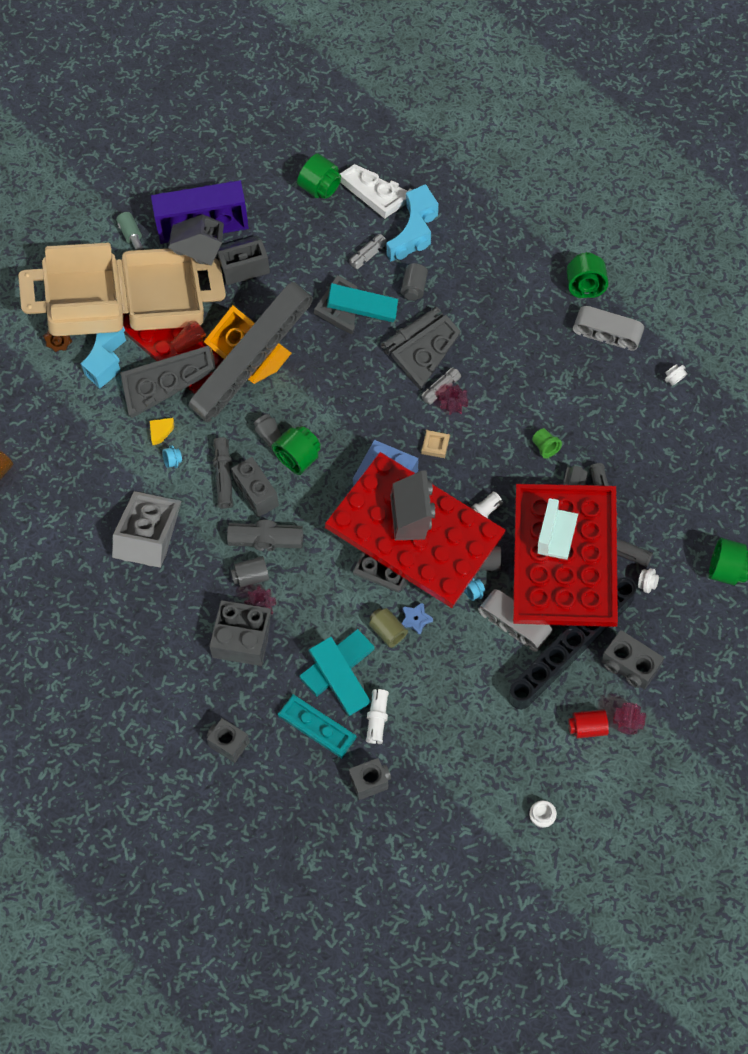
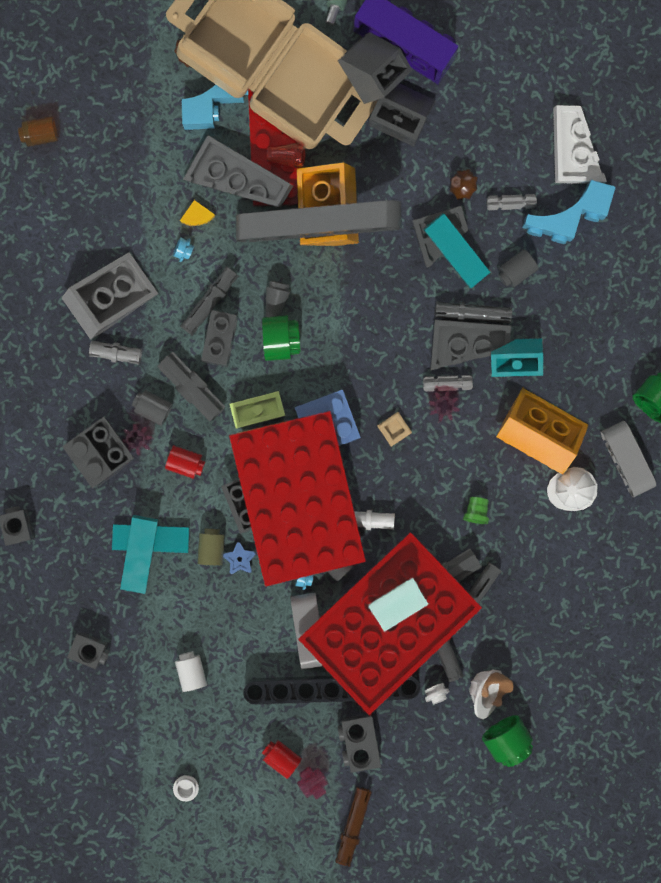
camera: 35 degrees right, 25 degrees up
(187, 561) = (115, 352): none -> light grey pin
(311, 587) = (185, 462): none -> red brick
(317, 726) = (91, 573): teal tile -> none
(319, 177) = (537, 94): green piece -> none
(324, 509) = (257, 409): none -> yellowish green plate
(325, 265) = (463, 184): none -> reddish brown piece
(377, 716) = (139, 608): white pin -> none
(412, 507) = (299, 491): dark grey slope -> none
(460, 724) = (190, 672): none -> white brick
(473, 326) = (518, 358): none -> teal slope
(536, 360) = (543, 431): none -> light orange slope
(593, 376) = (573, 489): none -> white piece
(675, 374) = (637, 549): white plate -> none
(678, 542) = (488, 691): none -> white piece
(696, 733) = (350, 837): none -> reddish brown pin

